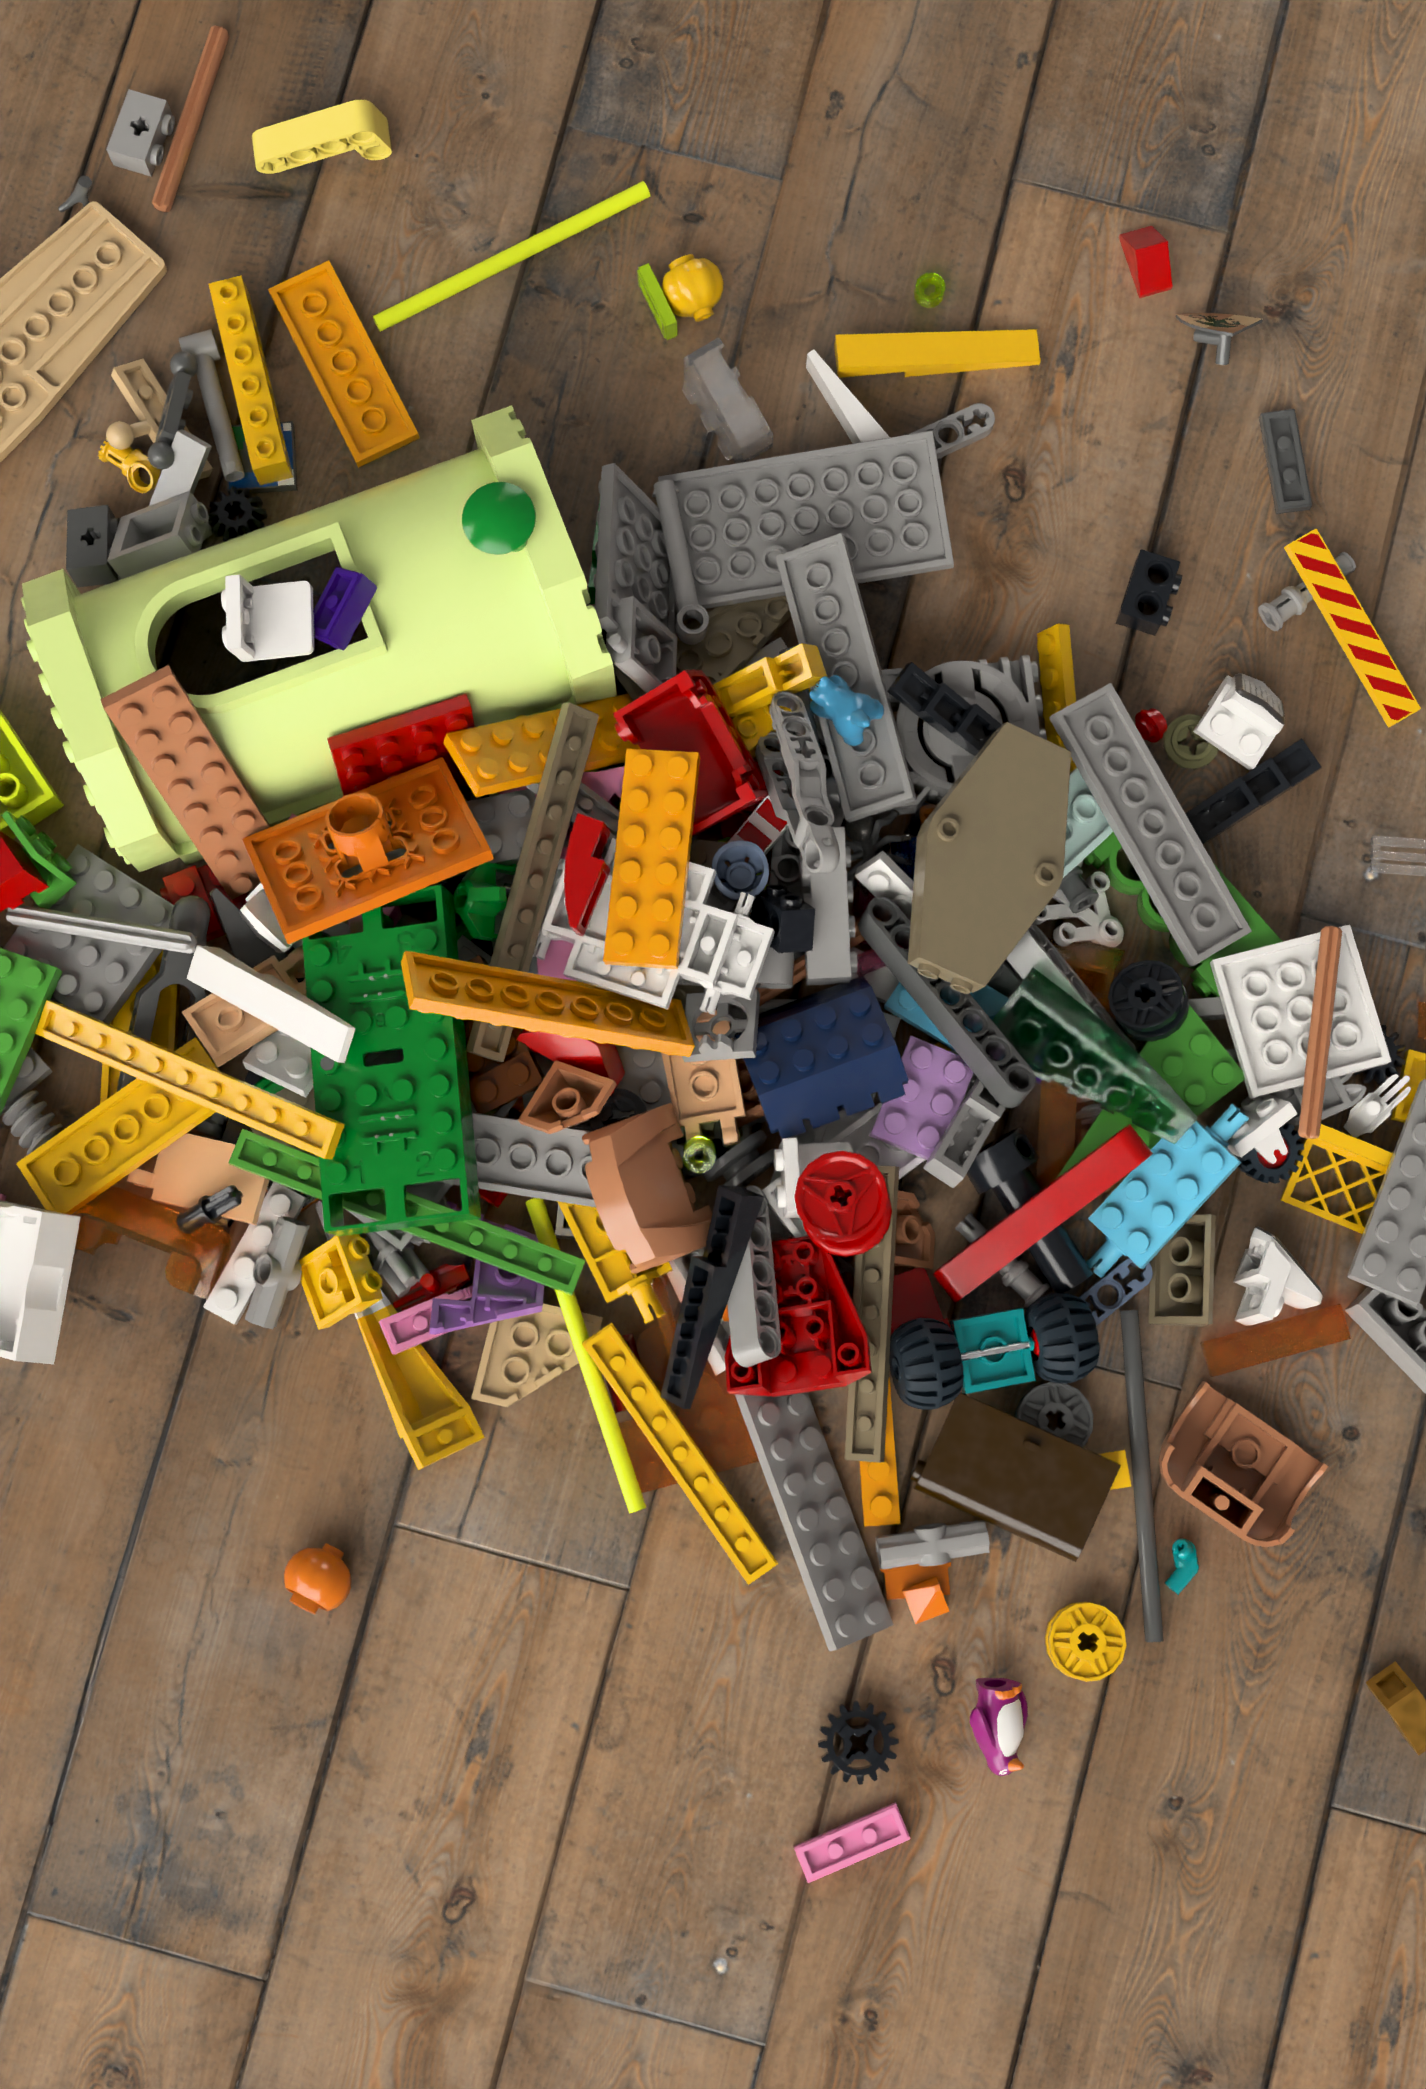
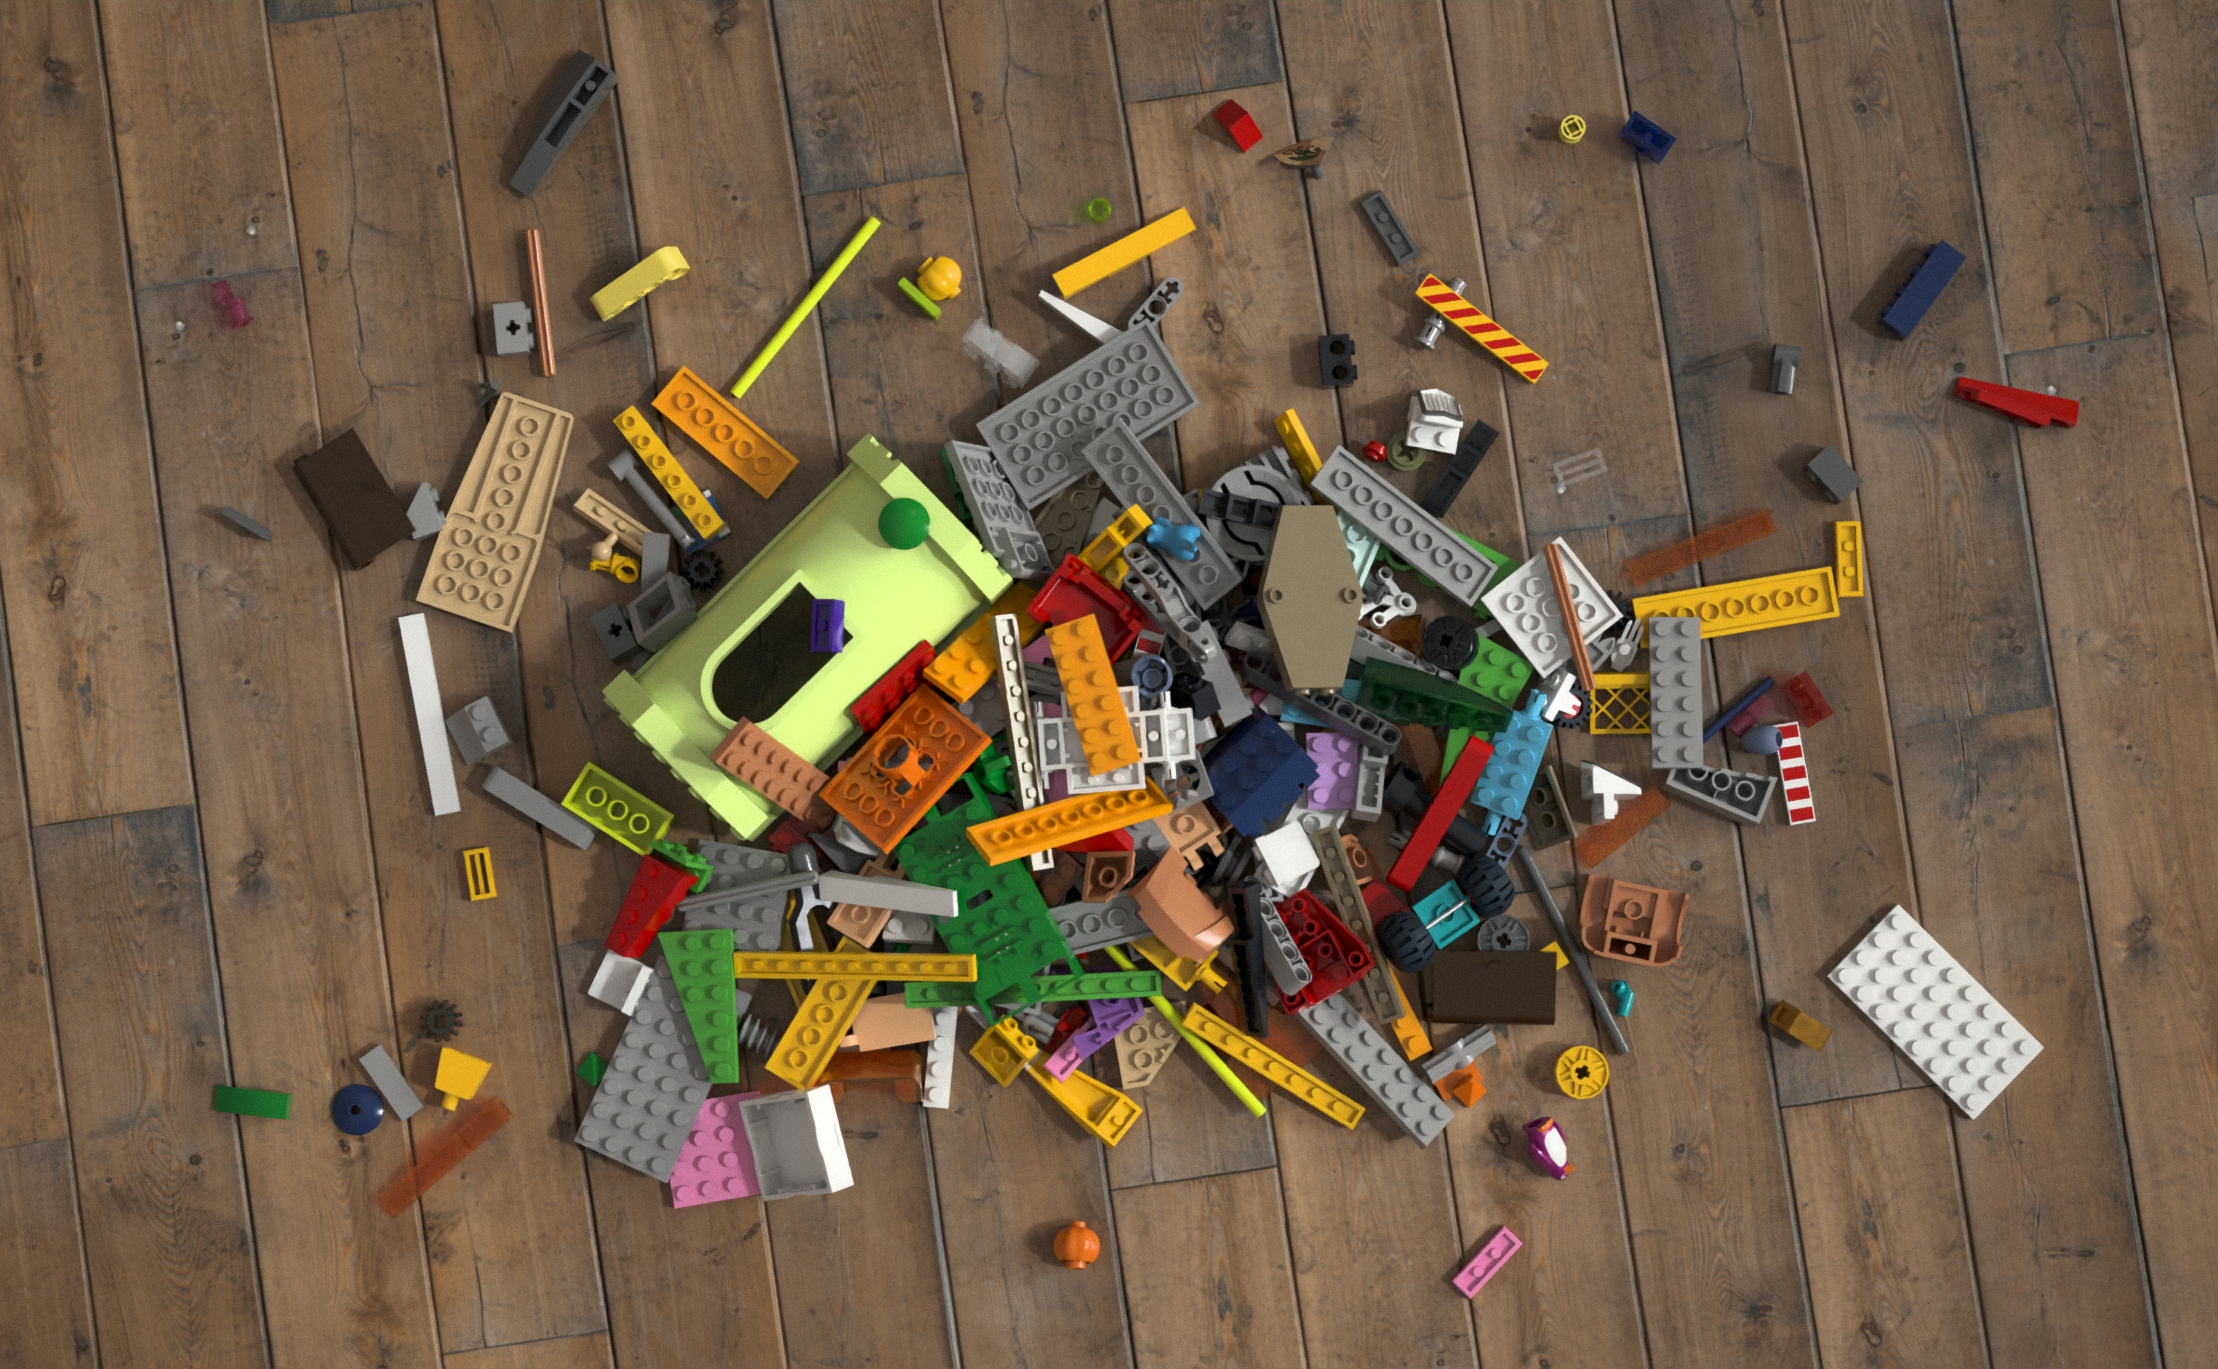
camera: 25 degrees left, 5 degrees up
(178, 397) = (628, 511): dark grey plate -> none
(209, 1209) = (904, 1042): black axle -> none
(267, 619) = (787, 654): white bracket -> none
(277, 1272) = (962, 1063): light grey piece -> none
(584, 870) = (1054, 724): red slope -> none
(679, 563) = (1016, 477): light grey piece -> none
(708, 1159) = (1199, 864): clear neon green bush -> none
(839, 1179) = (1298, 875): red piece -> none
(870, 1728) = (1468, 1185): black gear -> none

